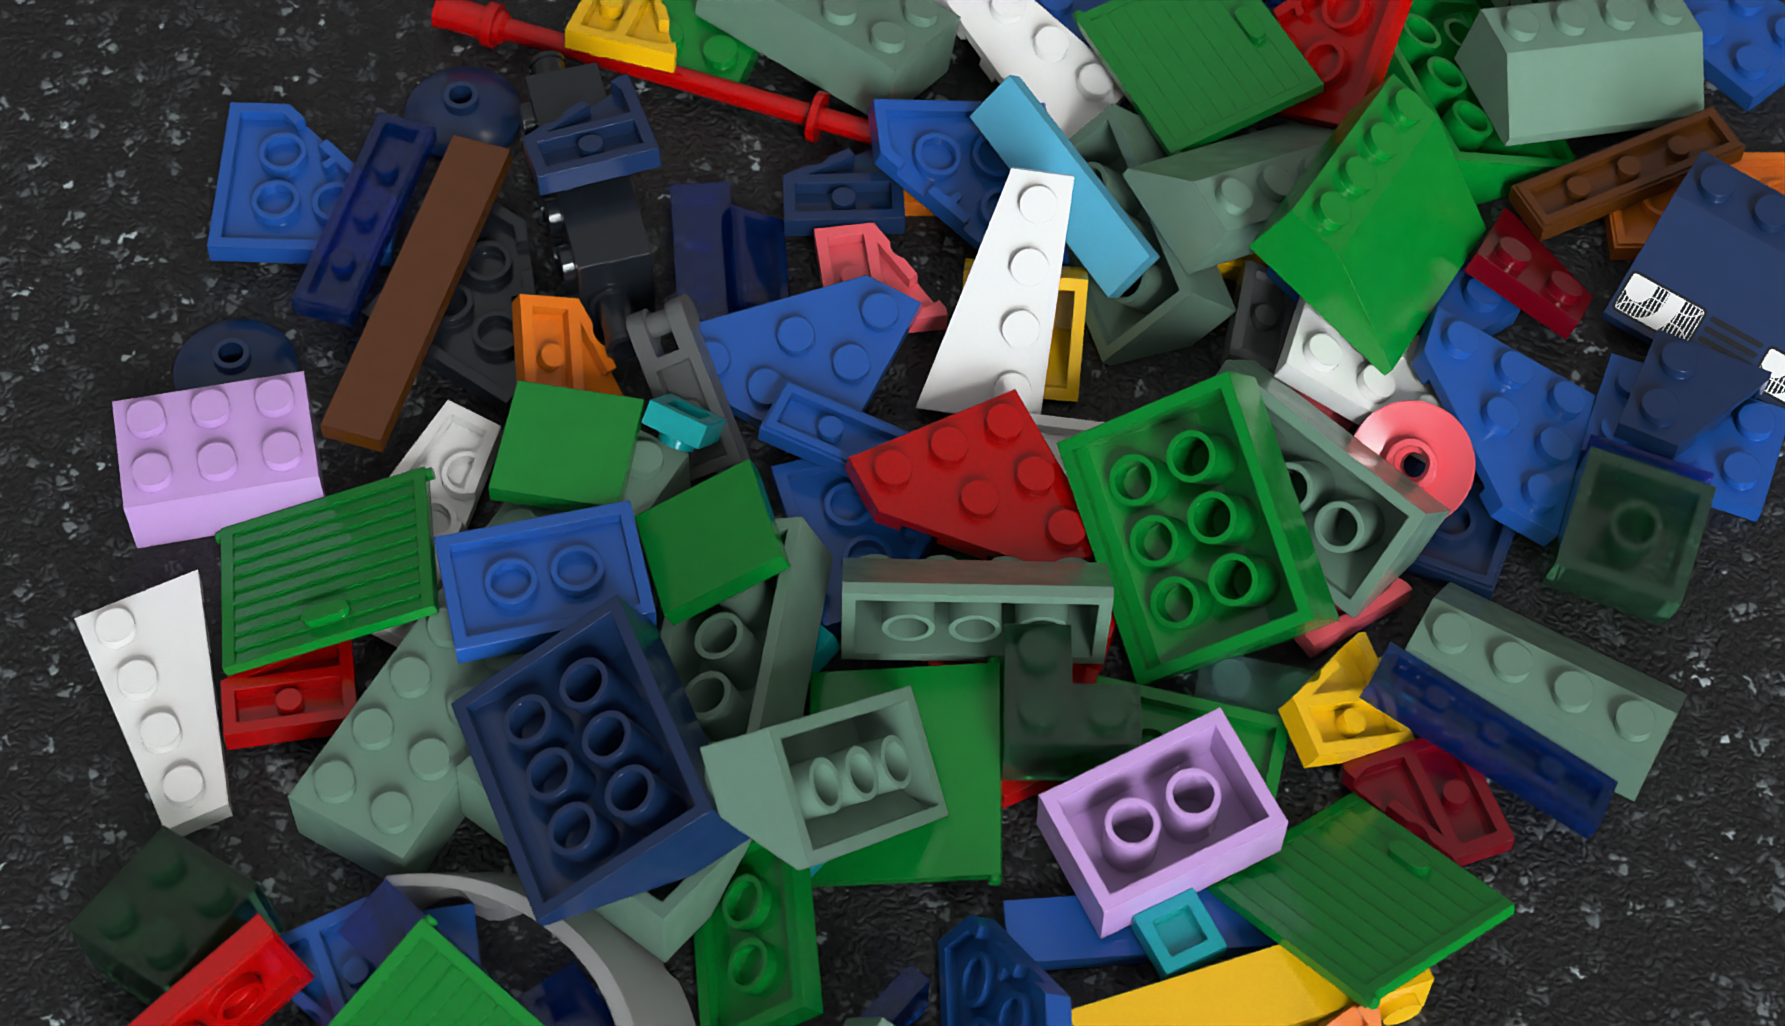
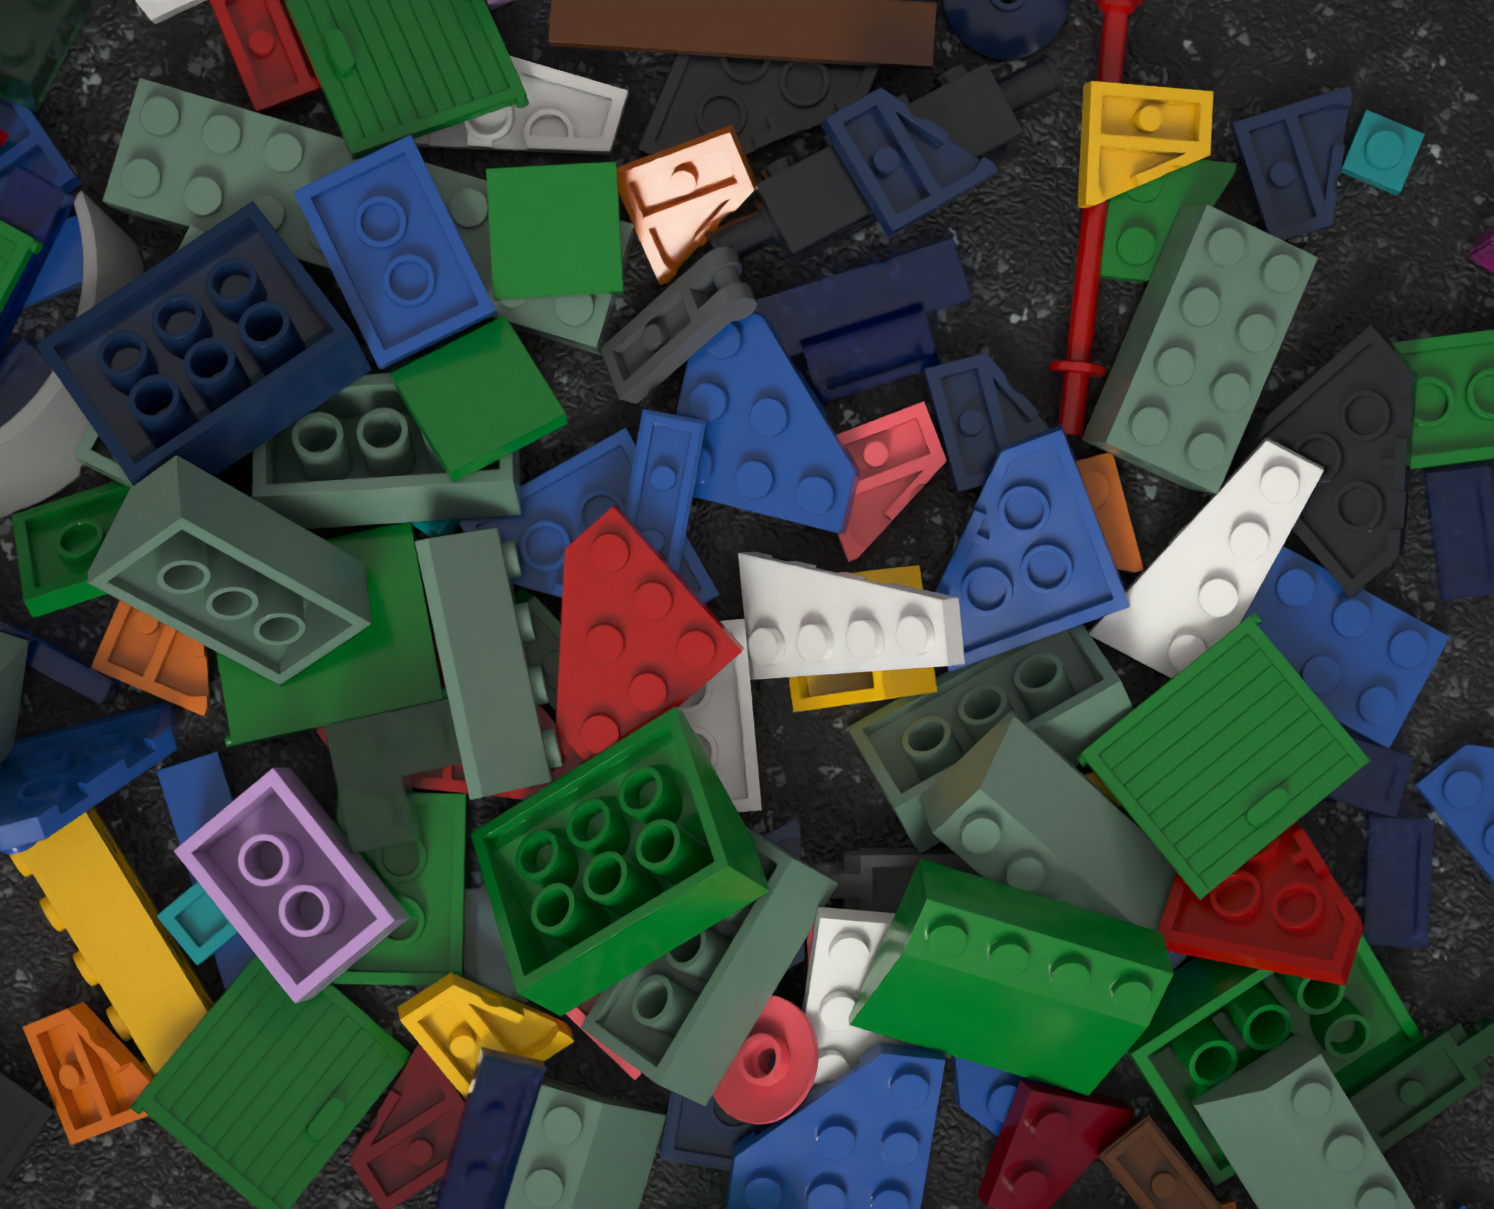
camera: 80 degrees right, 30 degrees up
(683, 423) = (625, 334): teal plate -> none
(875, 929) = (155, 659): none -> orange wing
(1097, 224) = (1005, 650): medium azure tile -> none

